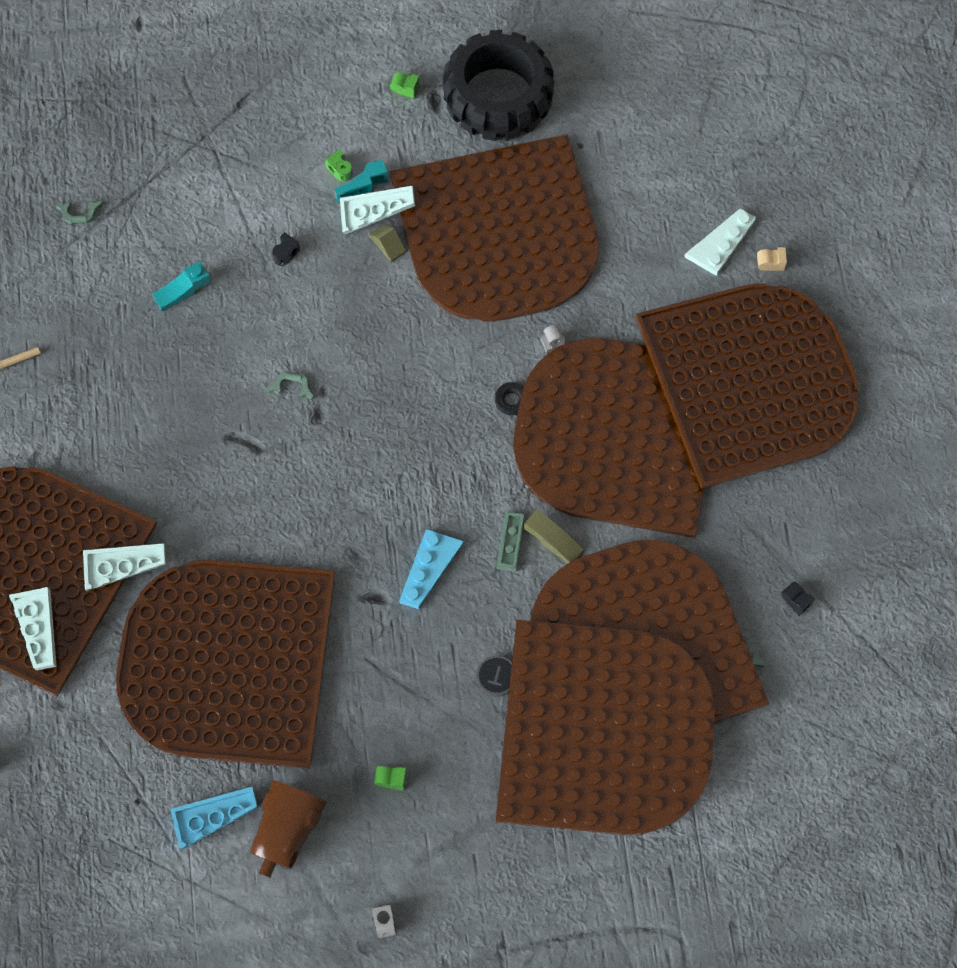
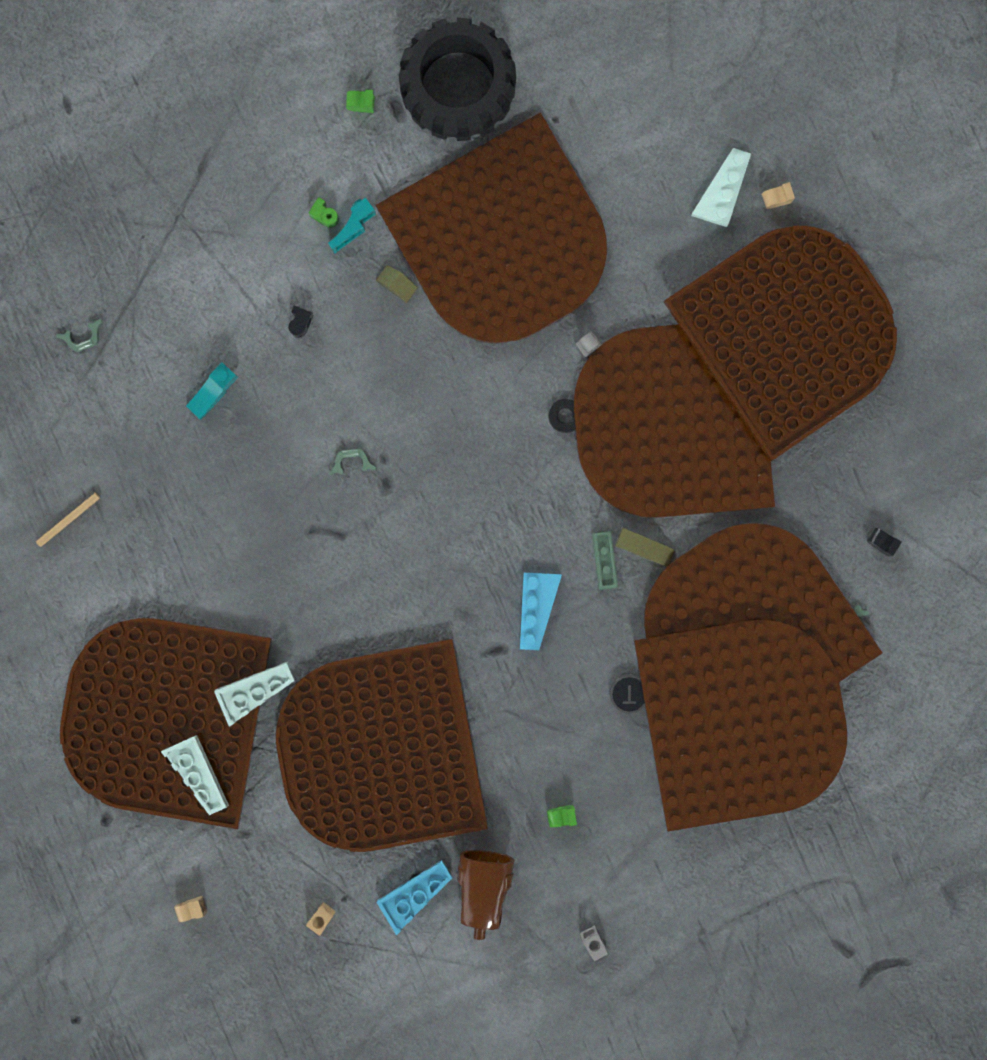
camera: 20 degrees left, 20 degrees up
(106, 810) = (321, 918): none -> tan leg
(372, 207) = (369, 253): light aqua wing -> none

